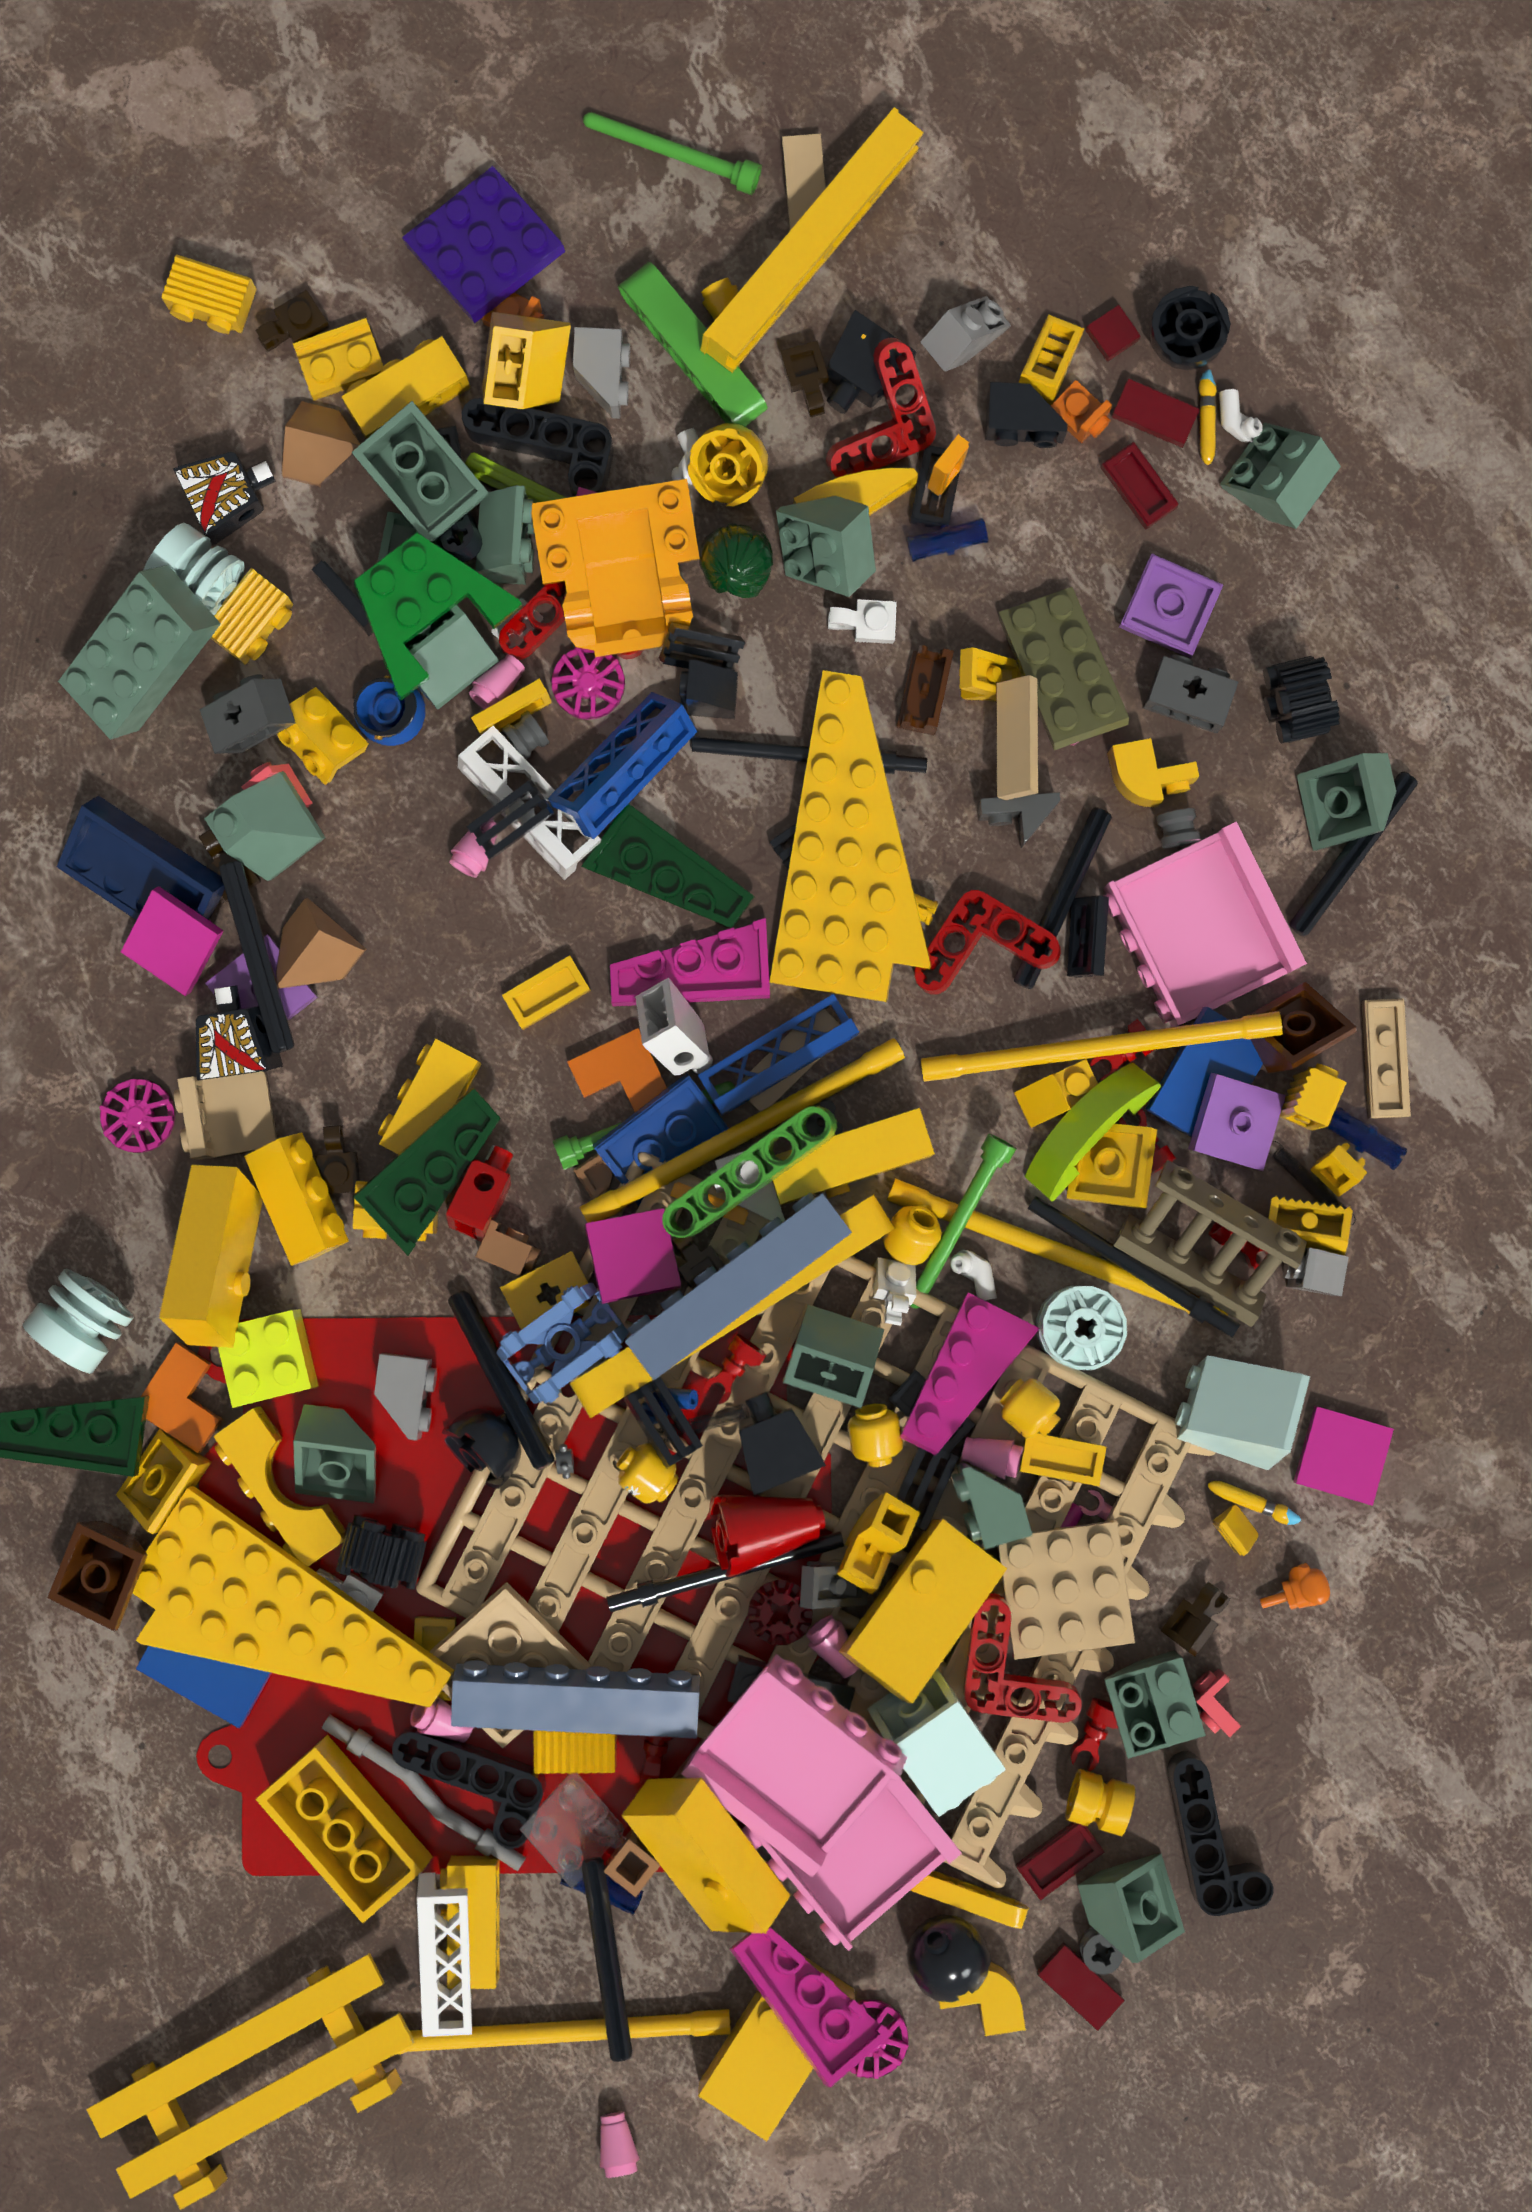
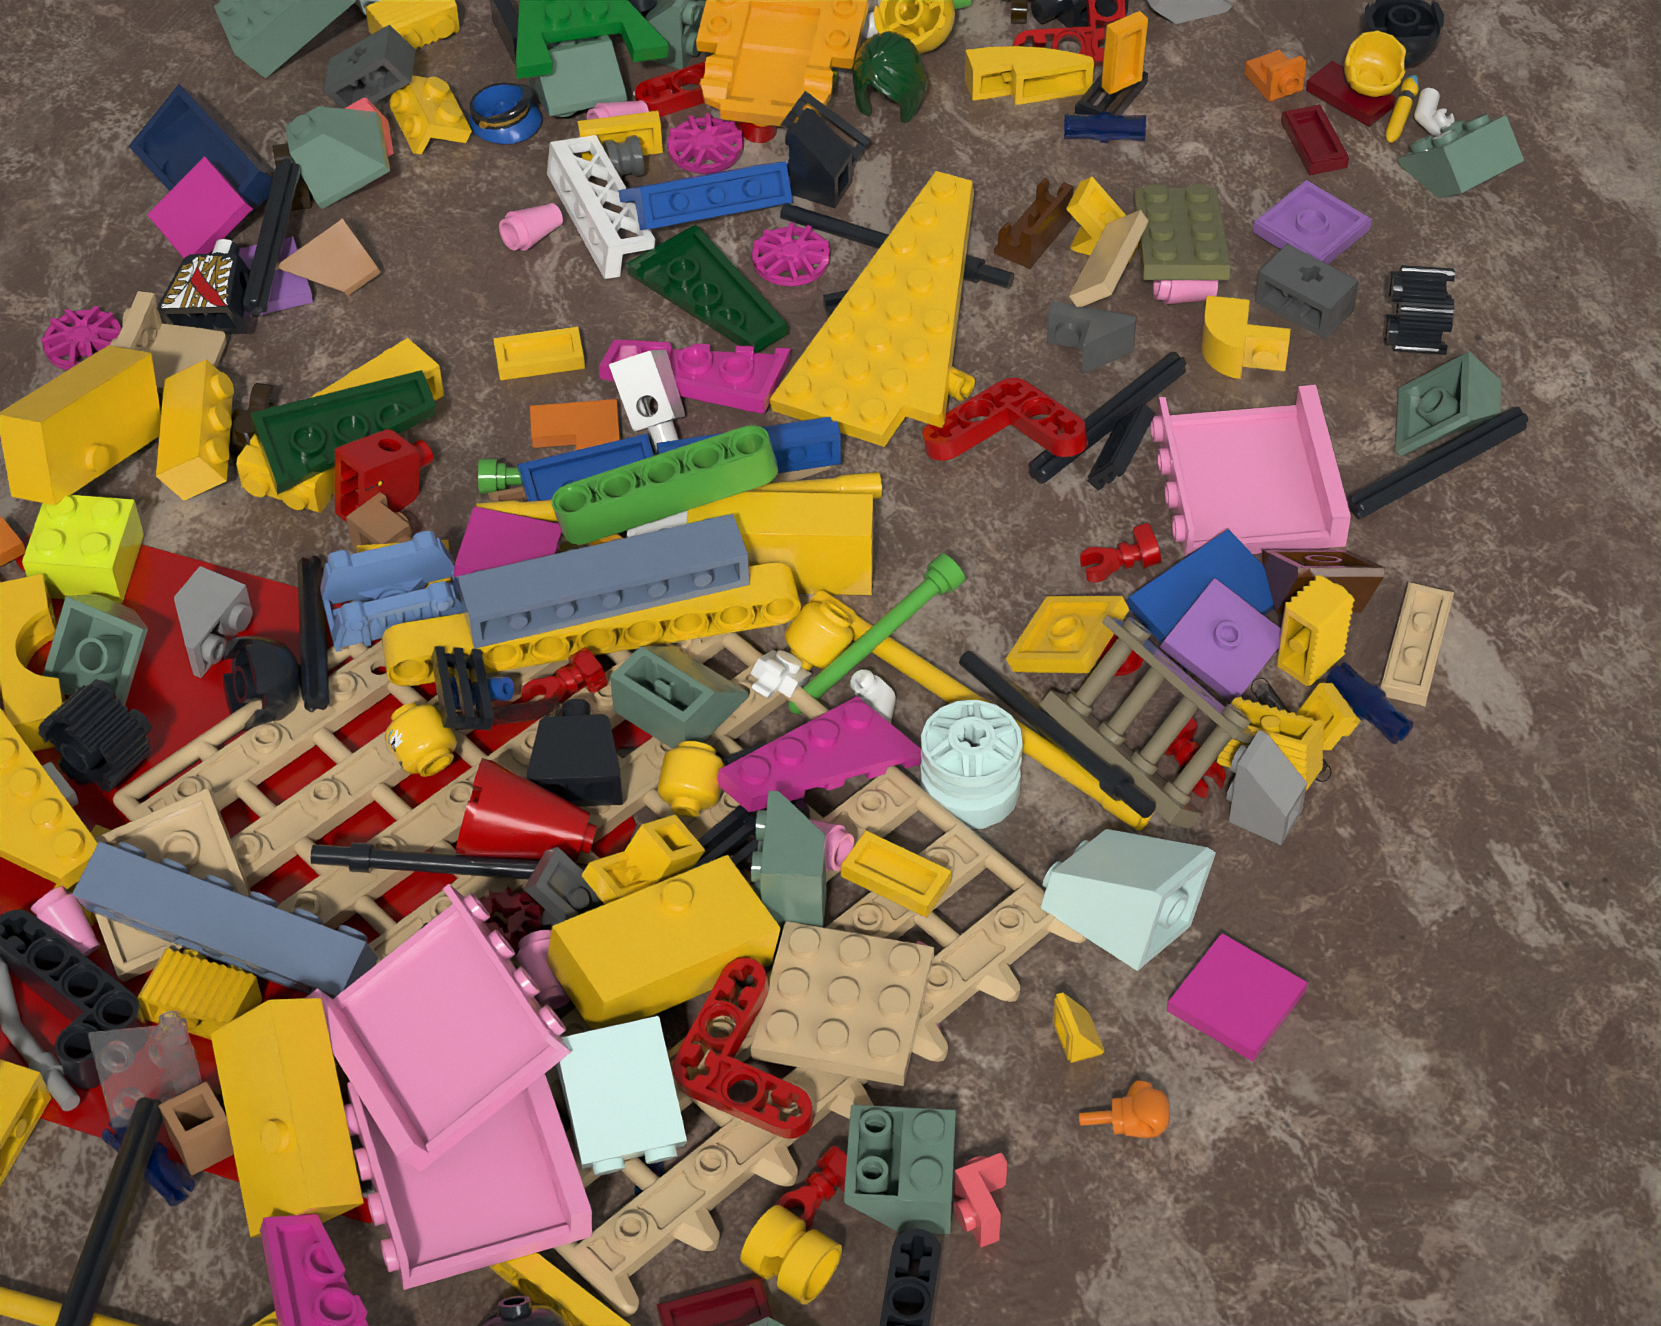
camera: 25 degrees right, 35 degrees down
(484, 838) = (573, 190): black tile -> none
(564, 1461) = (338, 710): dark grey piece -> none
(720, 797) = (790, 255): none -> dark pink wheel
(827, 543) = (983, 84): sand green slope -> none
(872, 621) = (1000, 168): white plate -> none
(1021, 415) = (1215, 59): black slope -> none
(1030, 1408) = (878, 803): yellow head -> none
(1041, 379) = (1257, 35): yellow slope -> none
(1055, 1093) = (1028, 573): yellow slope -> none
(1085, 1125) = (1005, 620): lime slope -> none
(1113, 333) = (1329, 31): dark red tile -> none
(1178, 393) = (1375, 64): none -> yellow hair
(1178, 828) = (1253, 385): dark grey wheel -> none
(1192, 1623) = (987, 1103): dark brown plate -> none
(1246, 1027) = (1261, 540): yellow piece -> none
(1279, 1512) = (1137, 1030): yellow piece -> none

